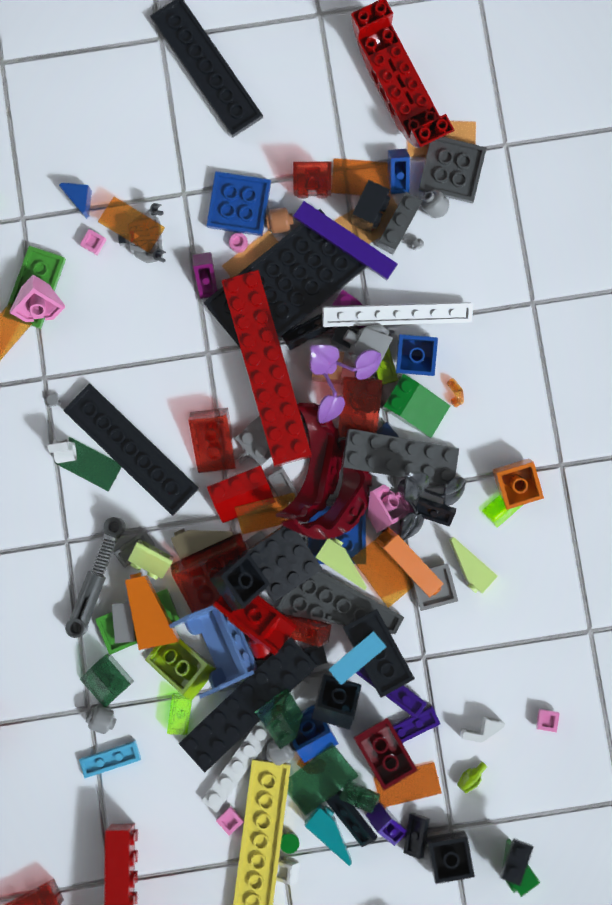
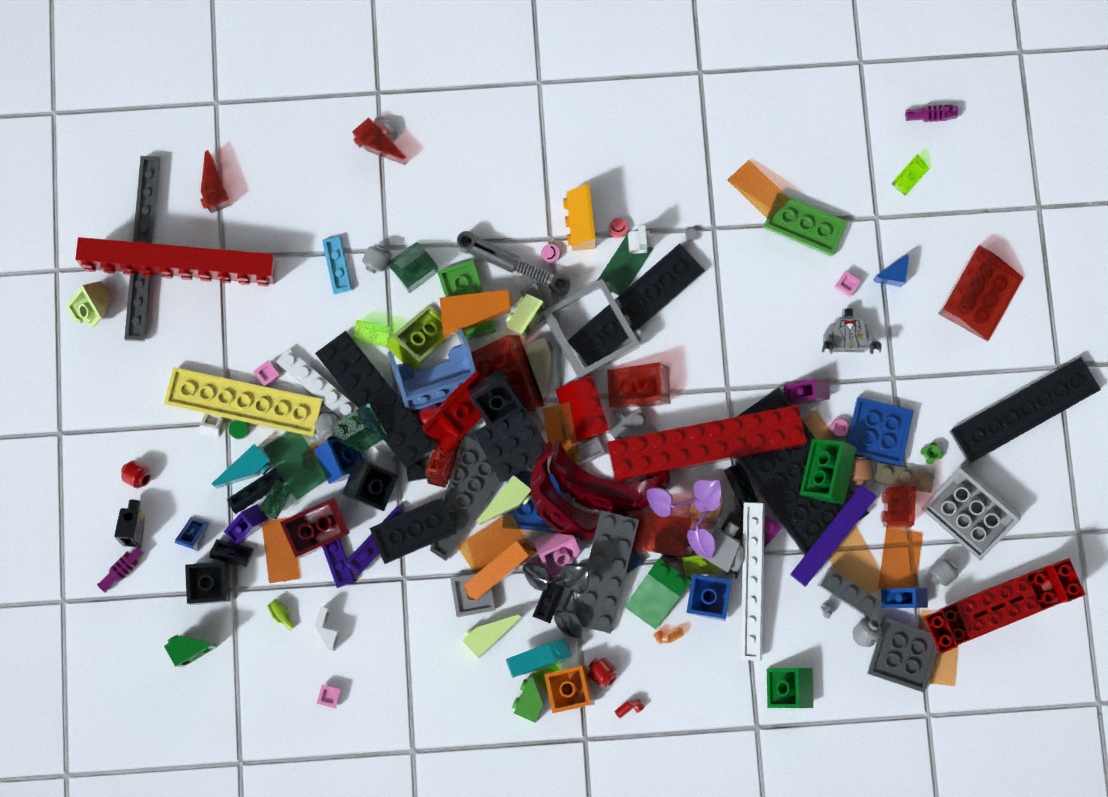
camera: 90 degrees right, 5 degrees down
(36, 301) = (789, 224): bright pink slope -> none
(44, 512) = (580, 218): none -> light orange slope
(51, 473) = (618, 228): none -> coral tile
(82, 540) = (550, 253): none -> bright pink tile
(92, 113) = (981, 293): none -> clear red slope
(123, 623) = (466, 285): light grey tile -> none
(131, 224) = (861, 322): clear orange piece -> none
(133, 469) = (566, 348): none -> light grey window
(256, 147) = (937, 454): none -> bright green plate
(281, 178) = (901, 476): none -> dark tan plate
(283, 248) = (828, 470): none -> green slope
(309, 112) = (971, 511): none -> light grey slope
(357, 657) = (411, 508): medium azure tile -> none
(370, 135) = (943, 571): none -> light grey head
(370, 205) = (866, 563): black brick -> none
(401, 878) = (192, 534): none -> blue slope
(492, 516) = (539, 658): none -> teal slope
(494, 273) = (789, 688): none -> green slope
(497, 453) = (602, 672): none -> red head
(516, 861) = (198, 644): black plate -> none
(527, 426) = (628, 706): none -> red arm
(534, 521) = (530, 702): none -> bright green slope

